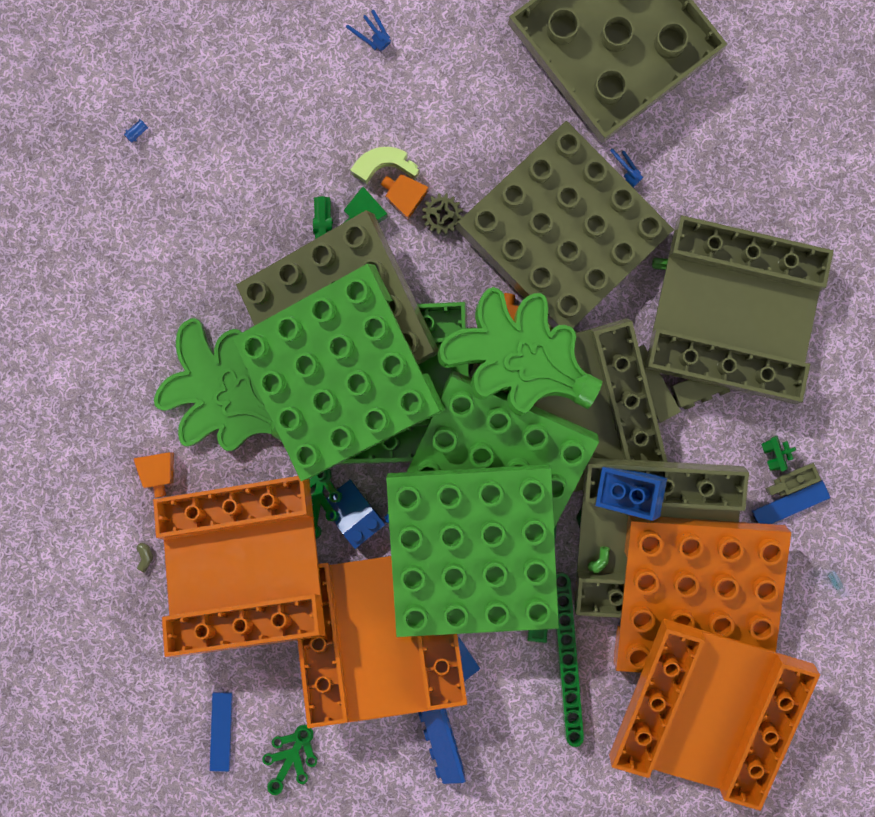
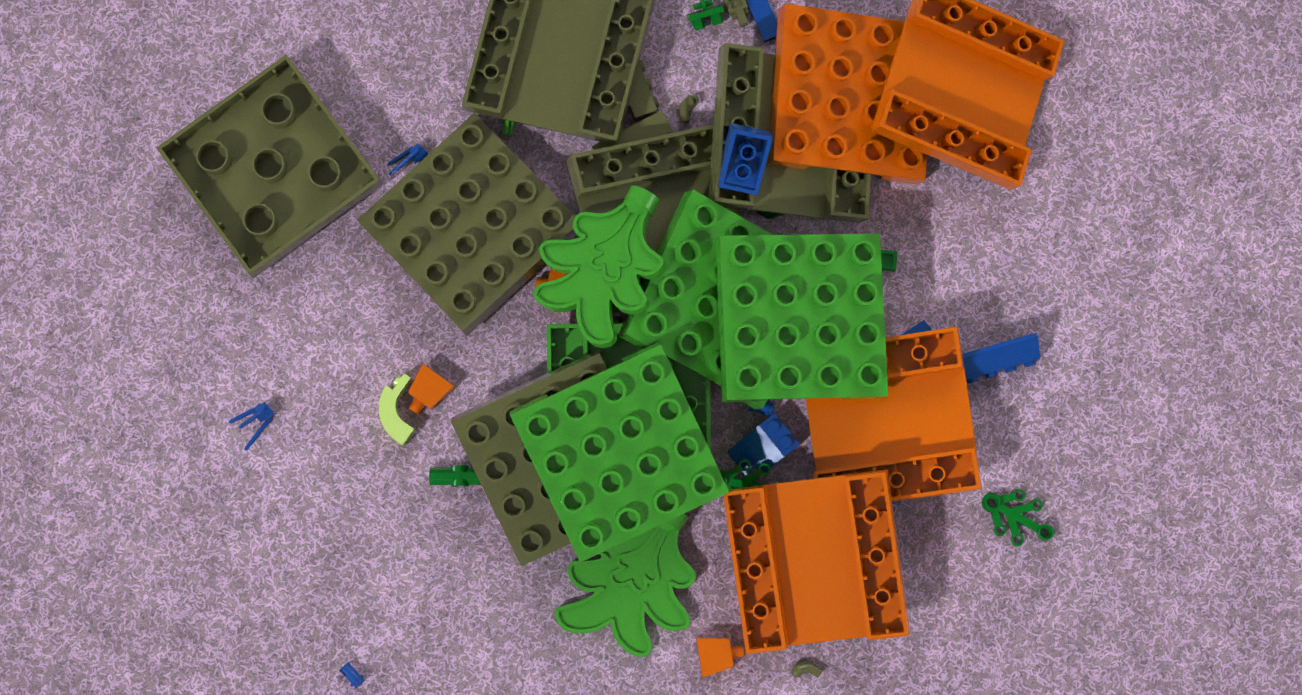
camera: 90 degrees left, 5 degrees down
(221, 731) = (989, 589): blue tile -> none
(364, 201) = (442, 433): green torso -> none
(450, 215) = (448, 359): olive gear -> none
(571, 667) = (922, 226): green beam -> none
(602, 562) = (815, 192): bright green arm -> none
(685, 435) = (686, 106): none -> olive arm

